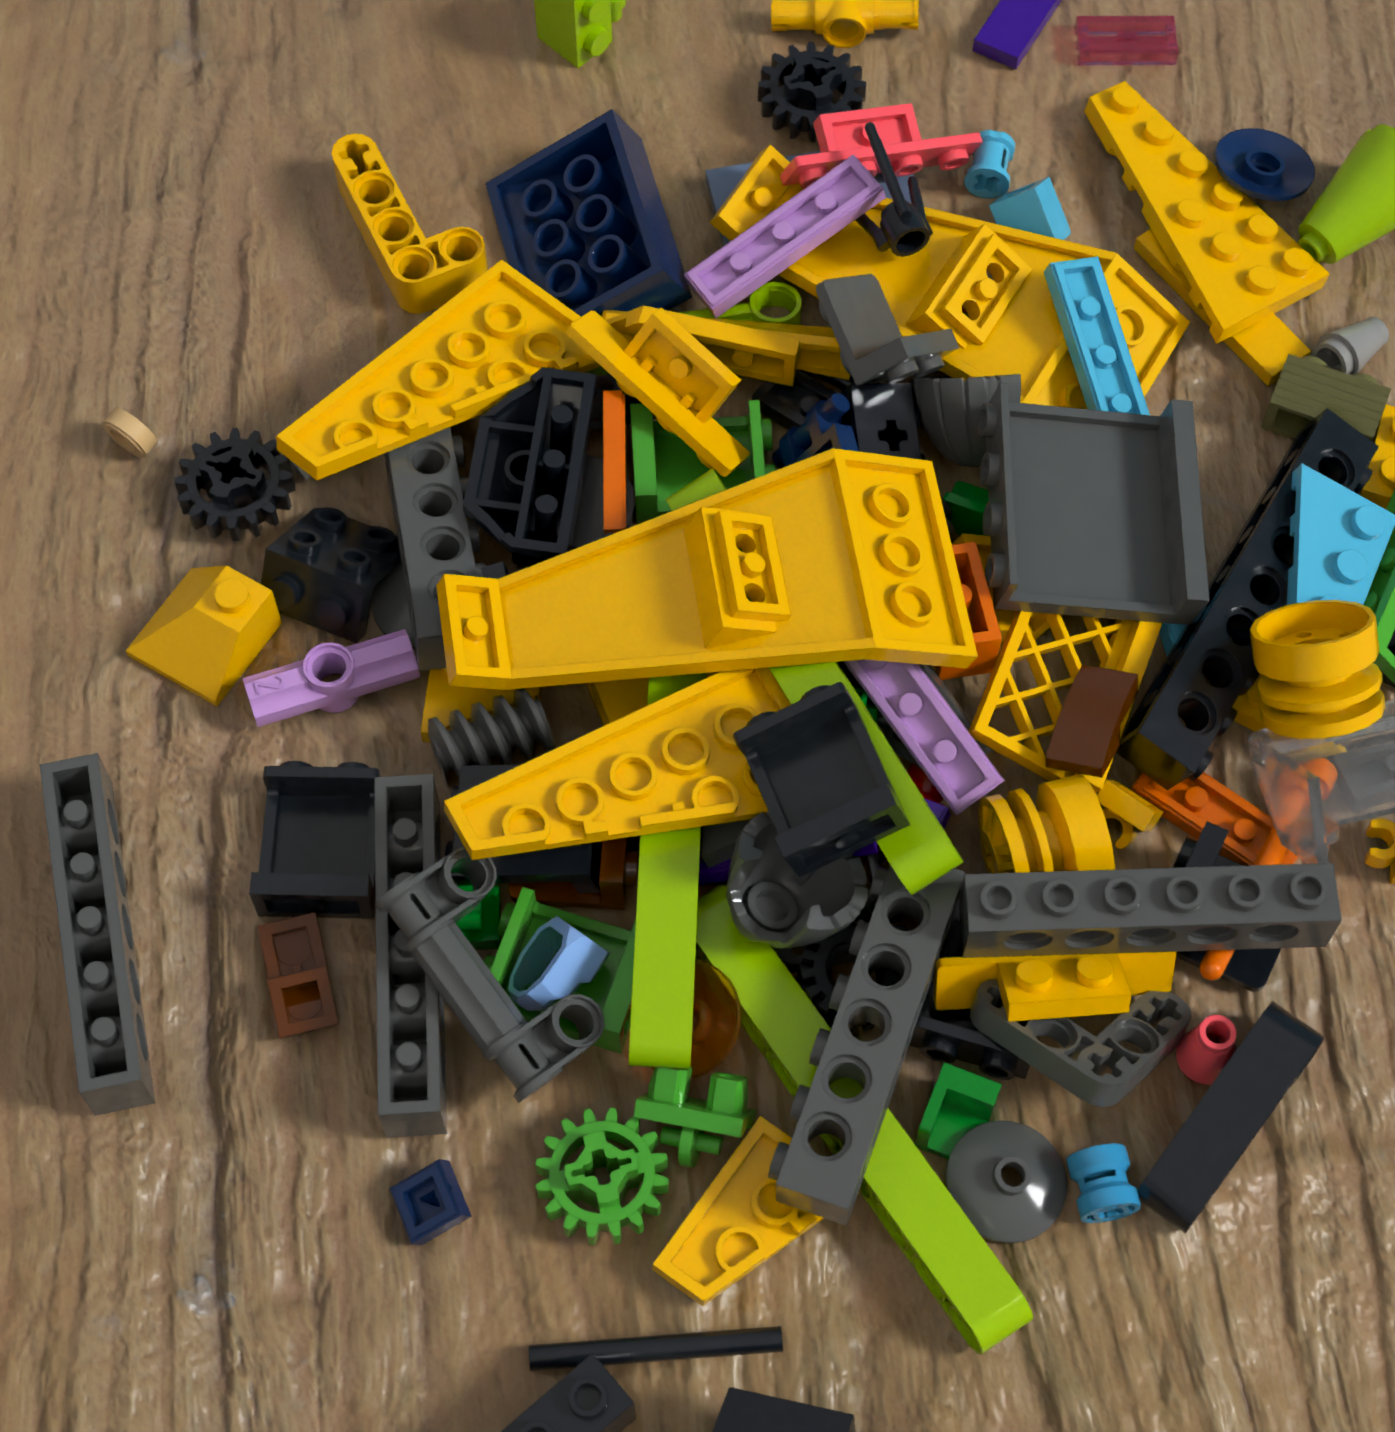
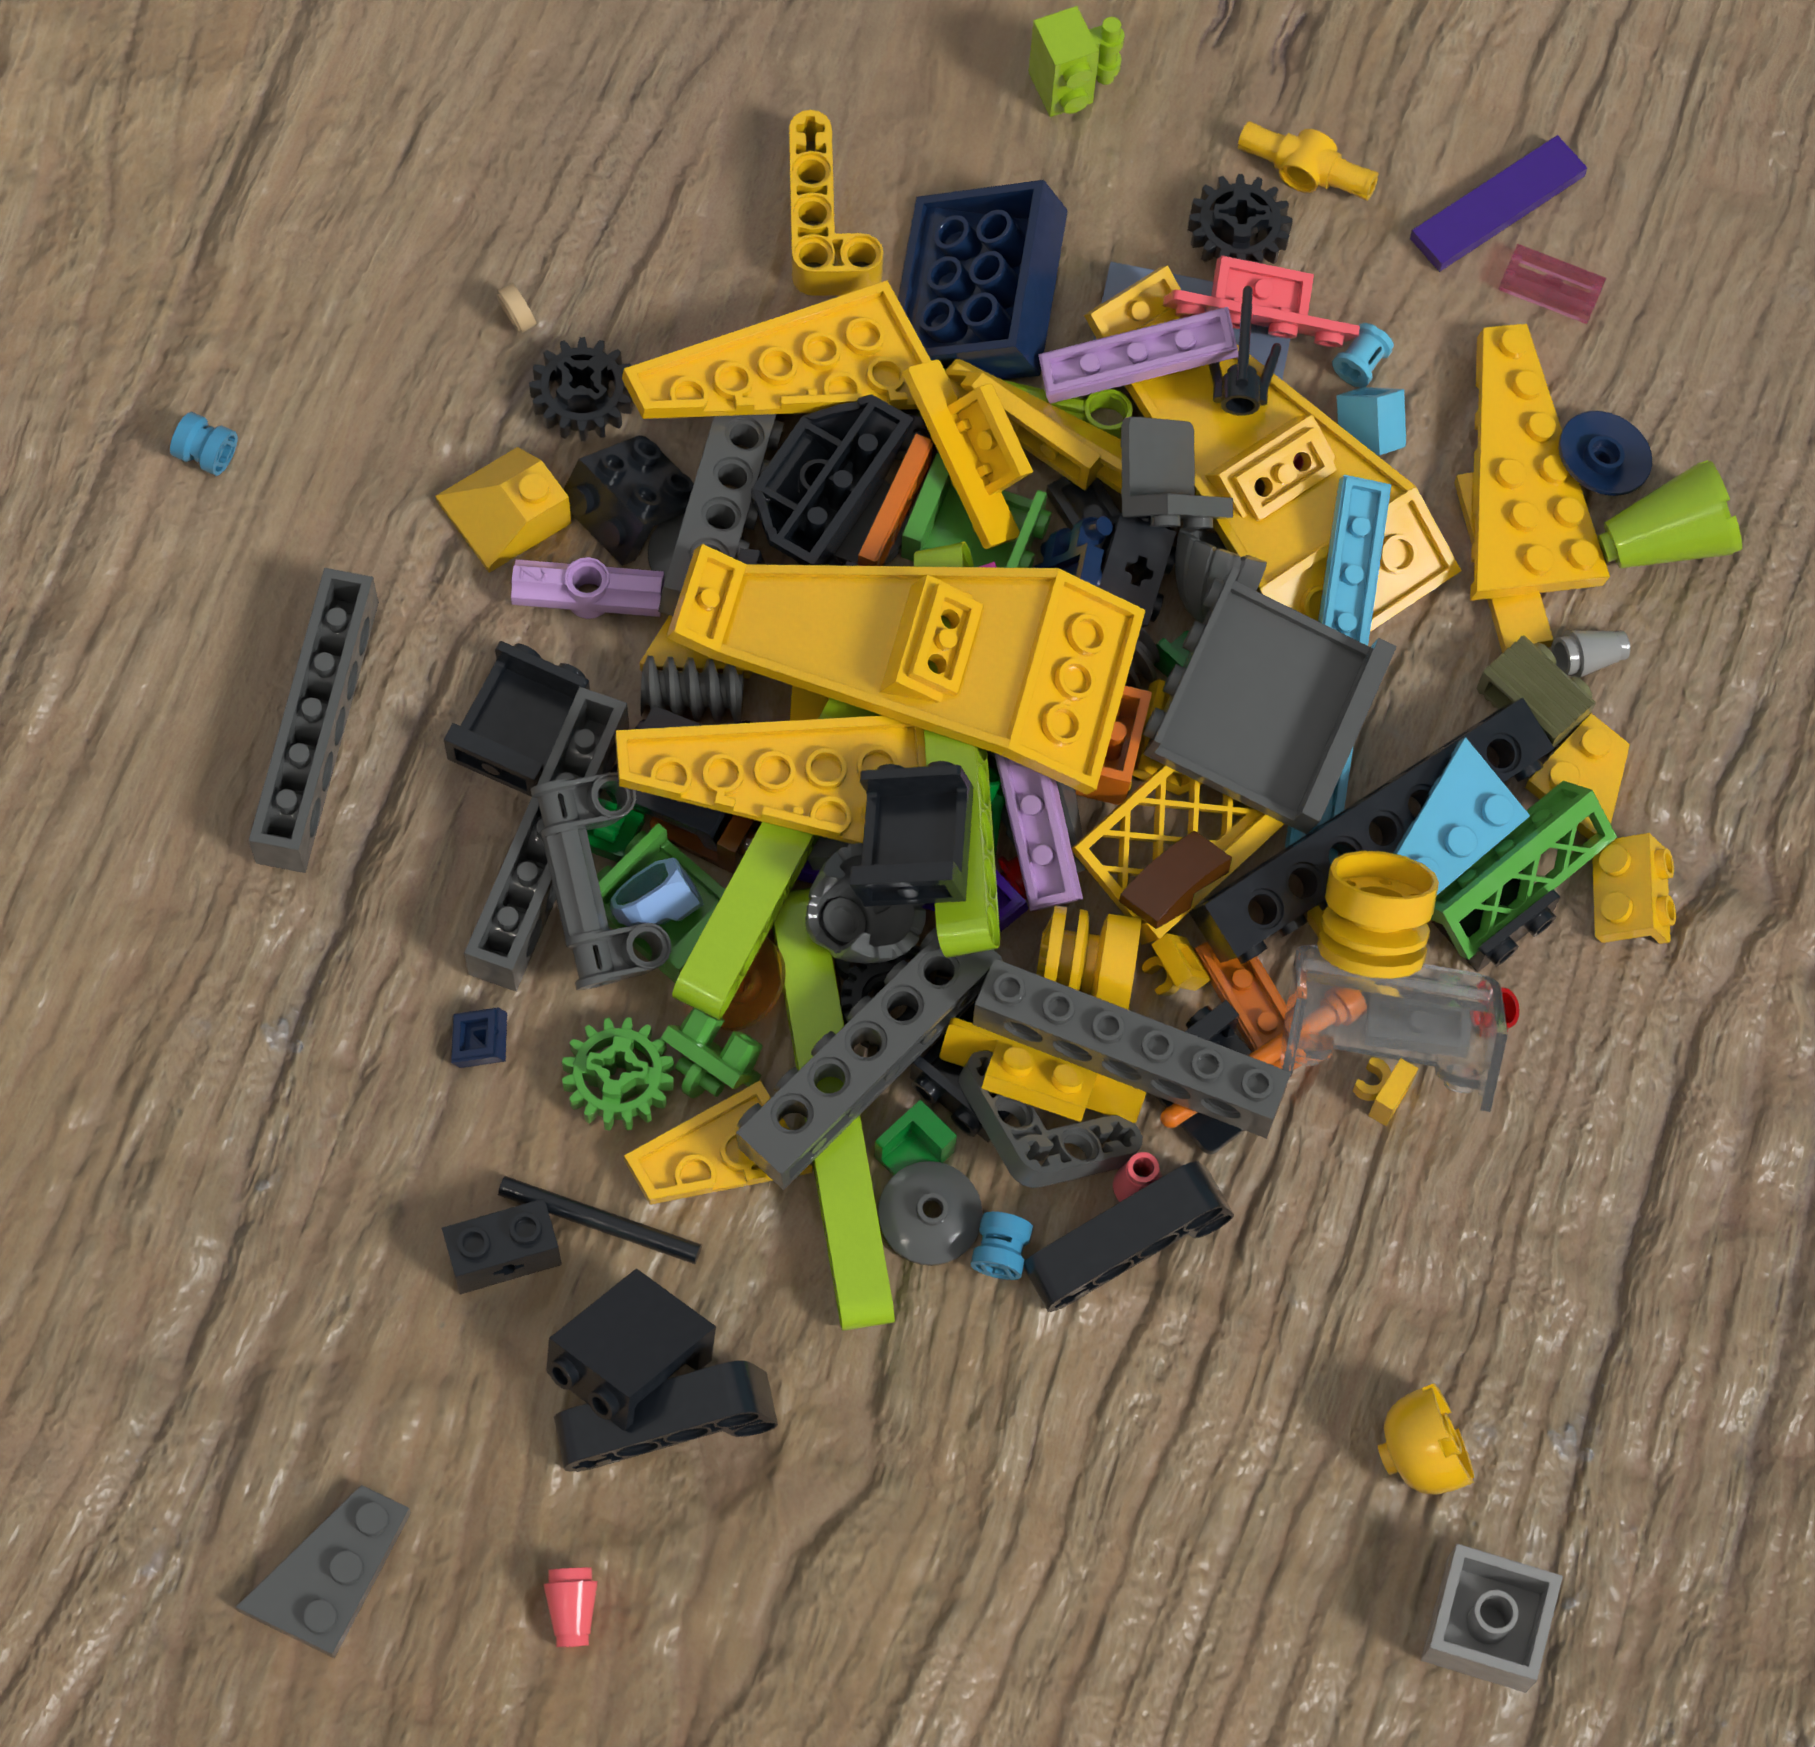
camera: 20 degrees right, 5 degrees up
(298, 975) = (457, 819): reddish brown slope -> none

